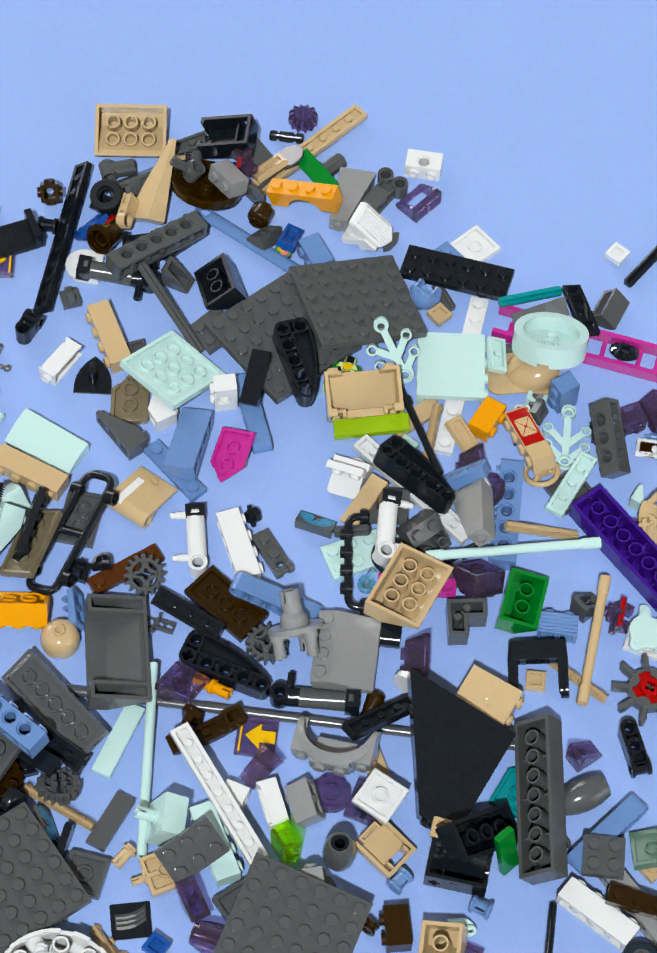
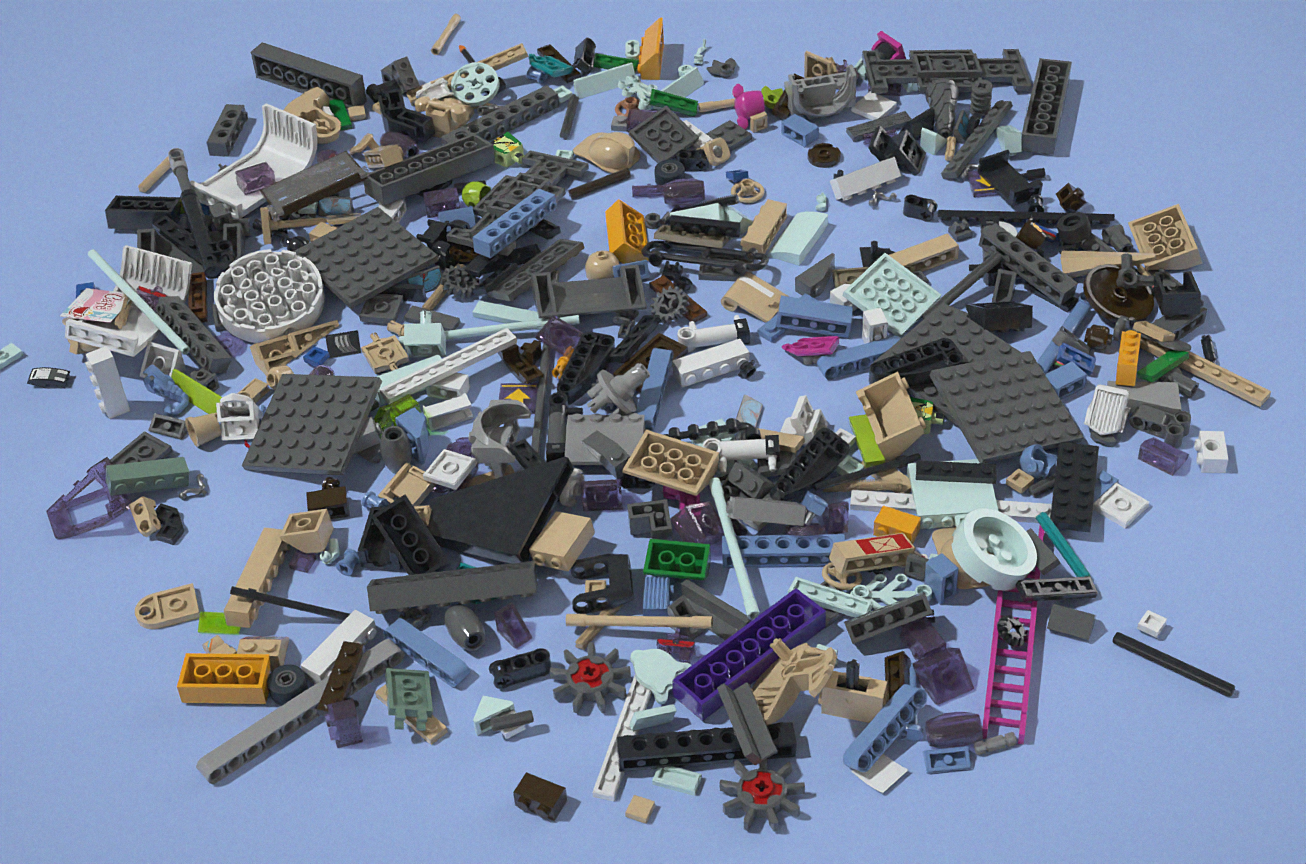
camera: 90 degrees right, 15 degrees down
(60, 362) = (885, 231): white window -> none
(127, 211) = (1068, 243): tan piece -> none
(191, 850) = (392, 352): dark grey plate -> none
(192, 899) = (355, 365): clear purple slope -> none
(228, 178) = (1124, 300): light grey brick -> none
(244, 161) = (1146, 306): clear purple hips -> none
(255, 378) = (890, 341): black tile -> none
(260, 766) = (482, 395): clear purple plant -> none
(272, 553) = (710, 389): dark grey plate -> none
(302, 118) = (1235, 356): clear purple gear -> none
(304, 803) = (448, 429): light grey brick -> none
(314, 832) = (415, 427): none -> medium blue slope
(376, 645) = (607, 452): none -> dark grey slope
(394, 353) = (949, 447): light aqua plant -> none
(436, 357) = (956, 472): none -> black plate
(461, 433) = (870, 507): tan tile -> none
(506, 850) = (394, 555): green tile -> none
(544, 531) = (763, 570): tan axle -> none
(577, 581) = (726, 618): none -> dark grey panel
(603, 856) = (393, 641): dark grey plate -> none

